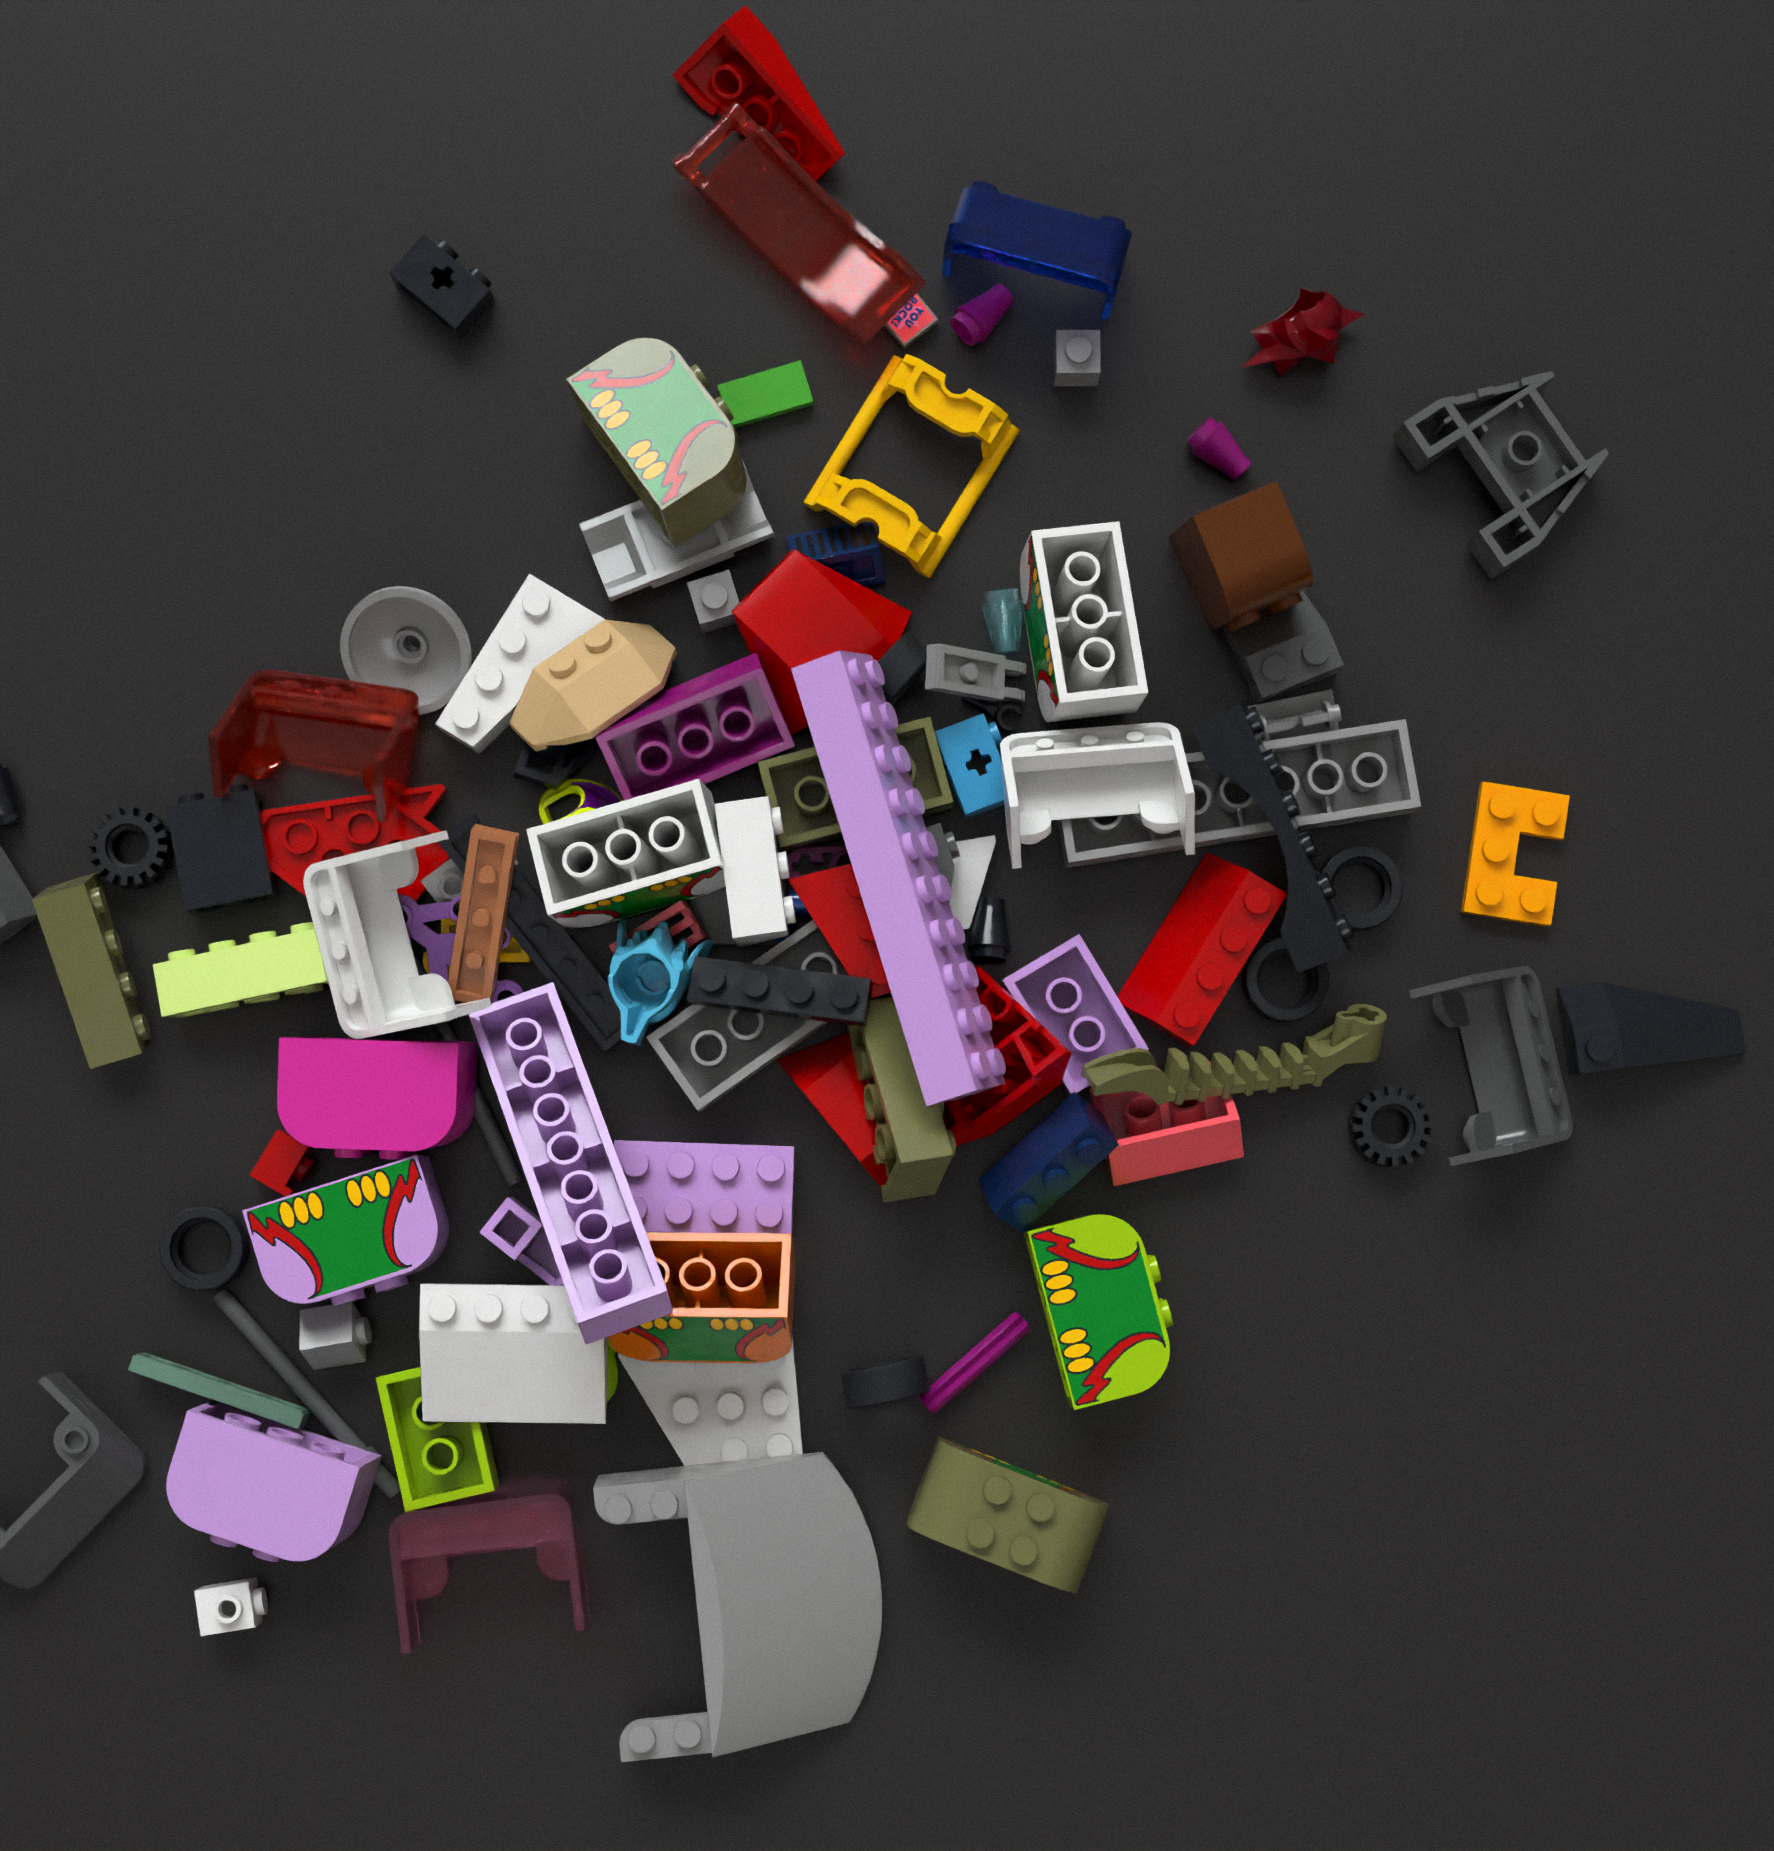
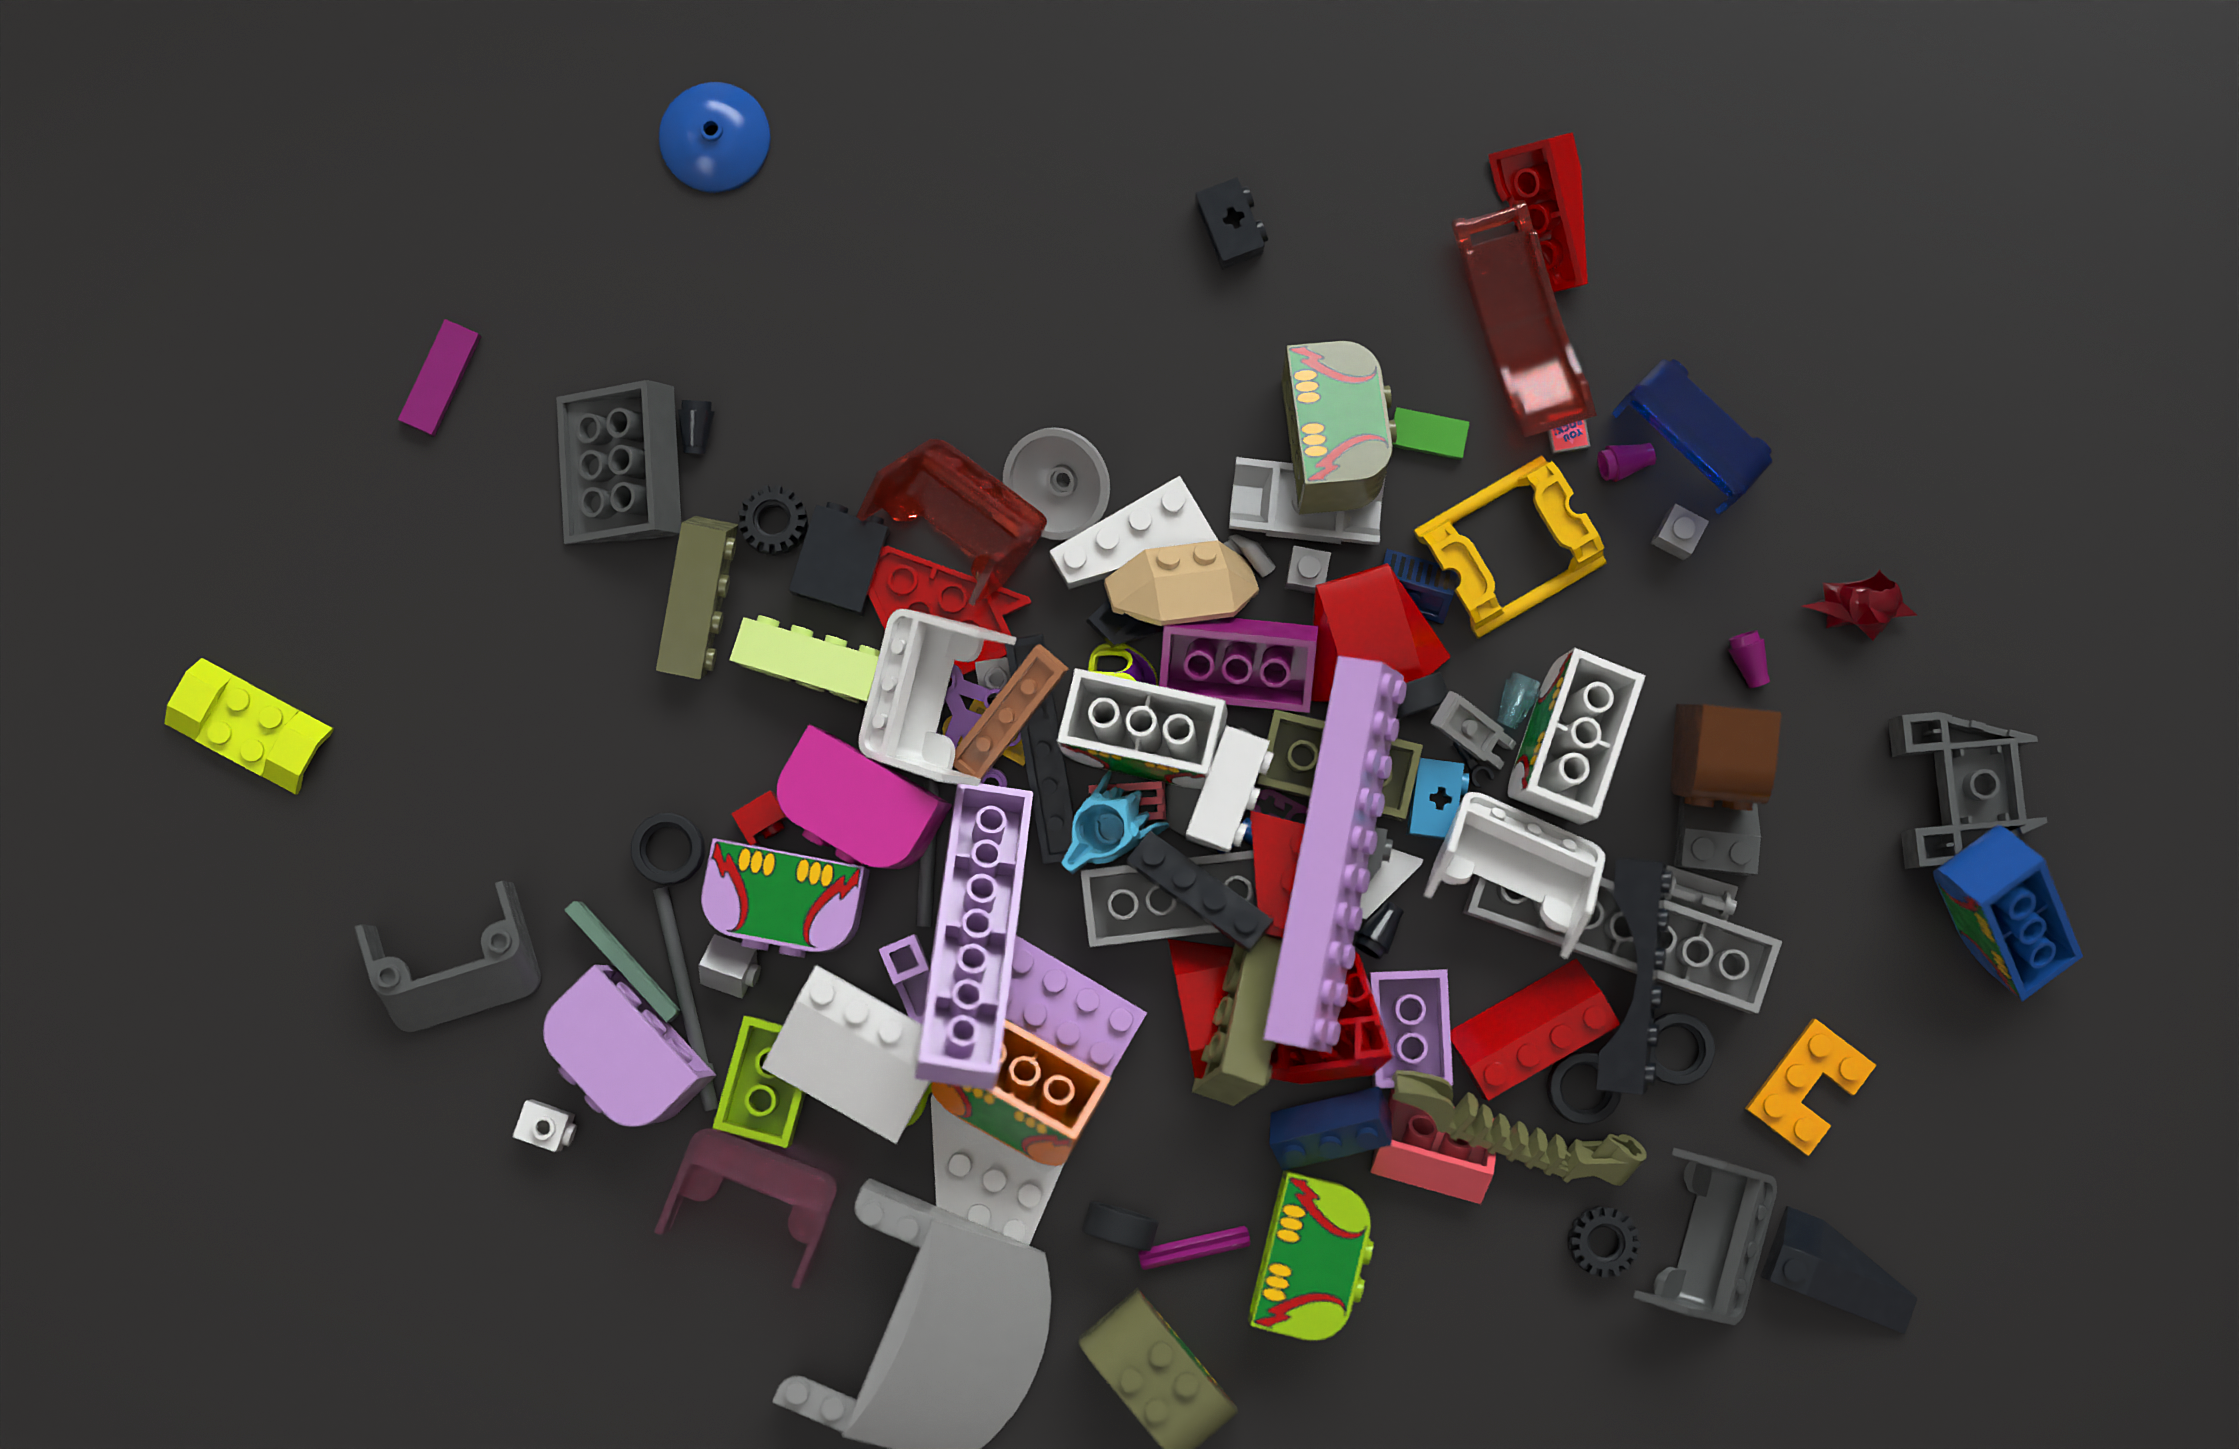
camera: 30 degrees right, 0 degrees up
(649, 613) = (1253, 552): none -> light grey arm
(1618, 563) = (2008, 911): none -> blue brick

